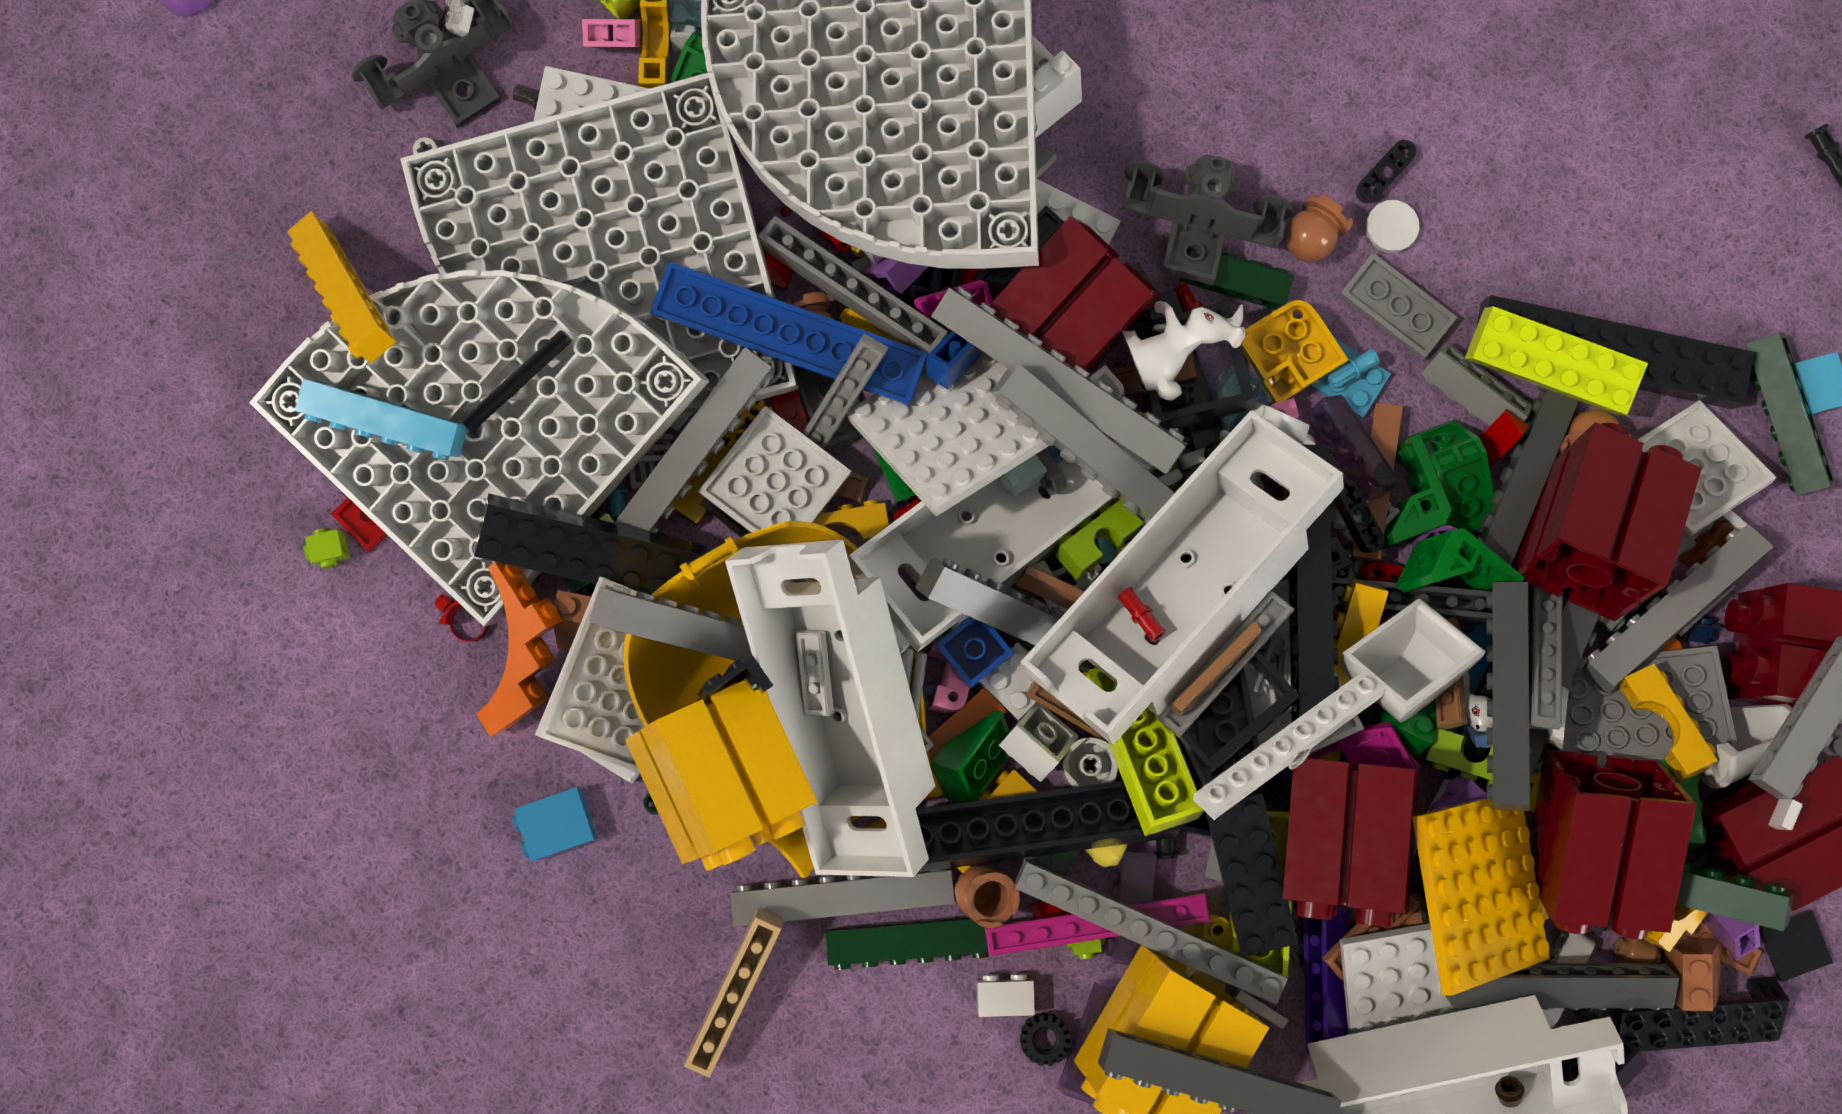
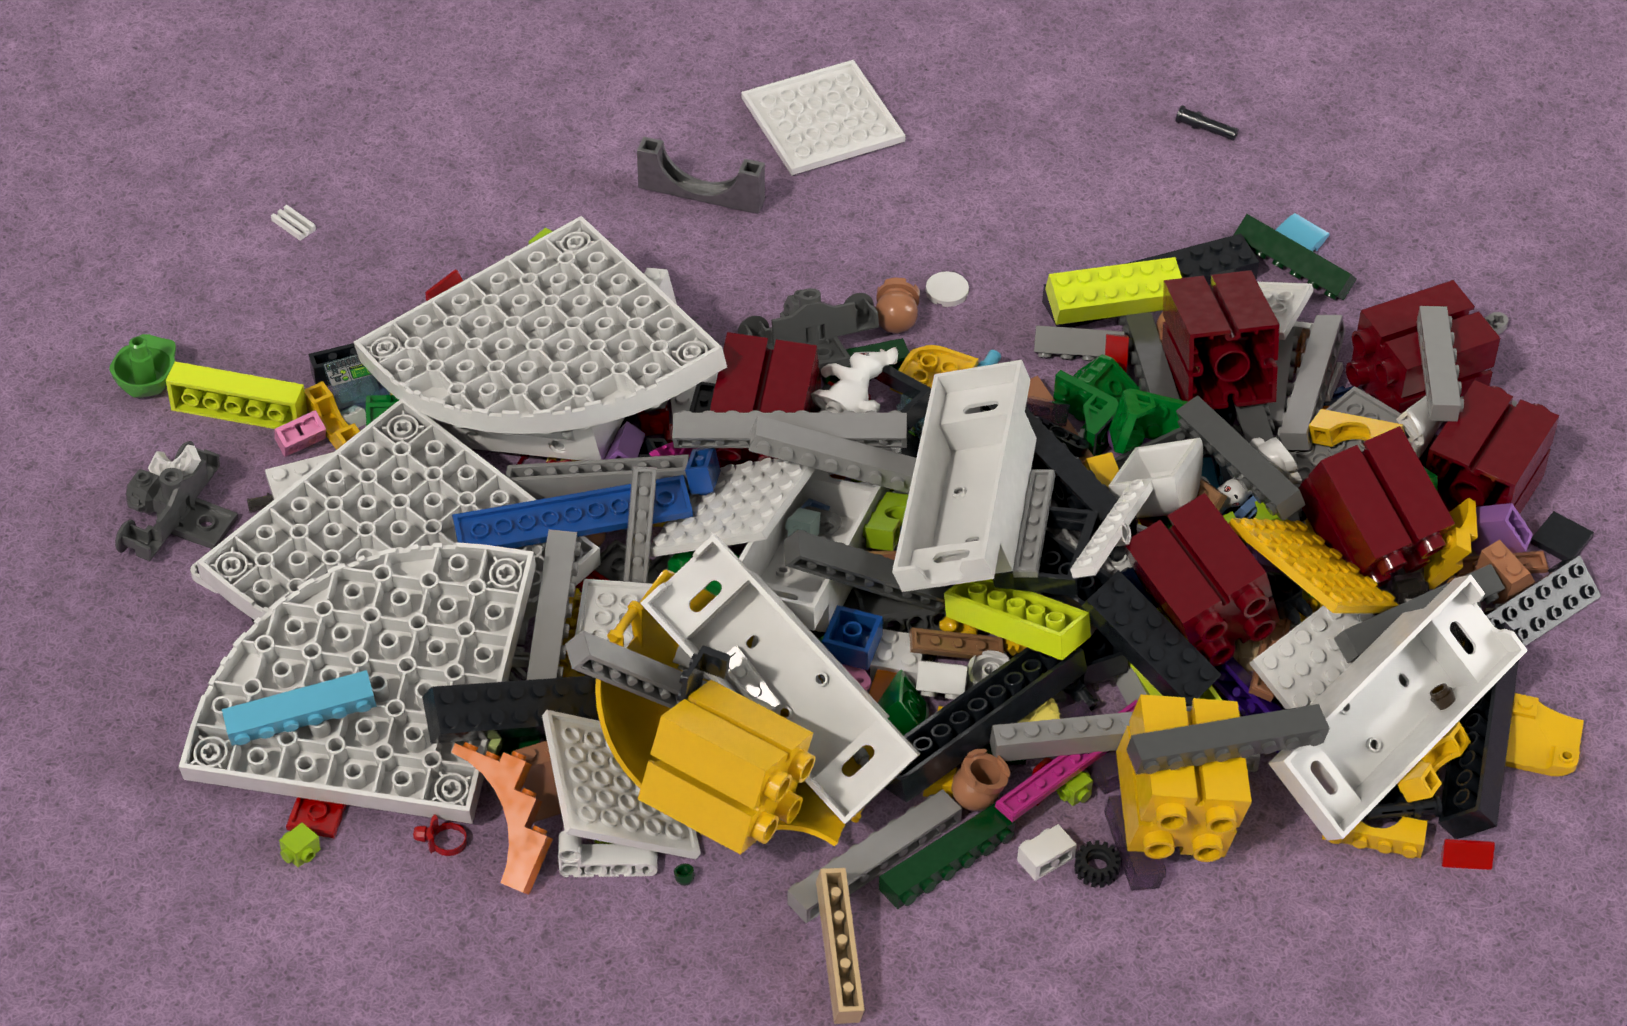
camera: 30 degrees left, 35 degrees down
(341, 288) = (208, 649): yellow brick -> none
(517, 380) = (392, 626): black axle -> none
(554, 824) = (615, 926): dark azure brick -> none
(1141, 614) = (954, 526): red pin -> none
(1216, 669) = (1029, 519): medium nougat tile -> none
(1392, 153) = (916, 256): black beam -> none
(1397, 306) = (987, 326): light grey plate -> none
(1546, 660) = (1260, 439): light grey tile -> none
(1735, 896) = (1479, 484): dark green brick -> none
(1785, 814) = (1467, 421): white tile -> none

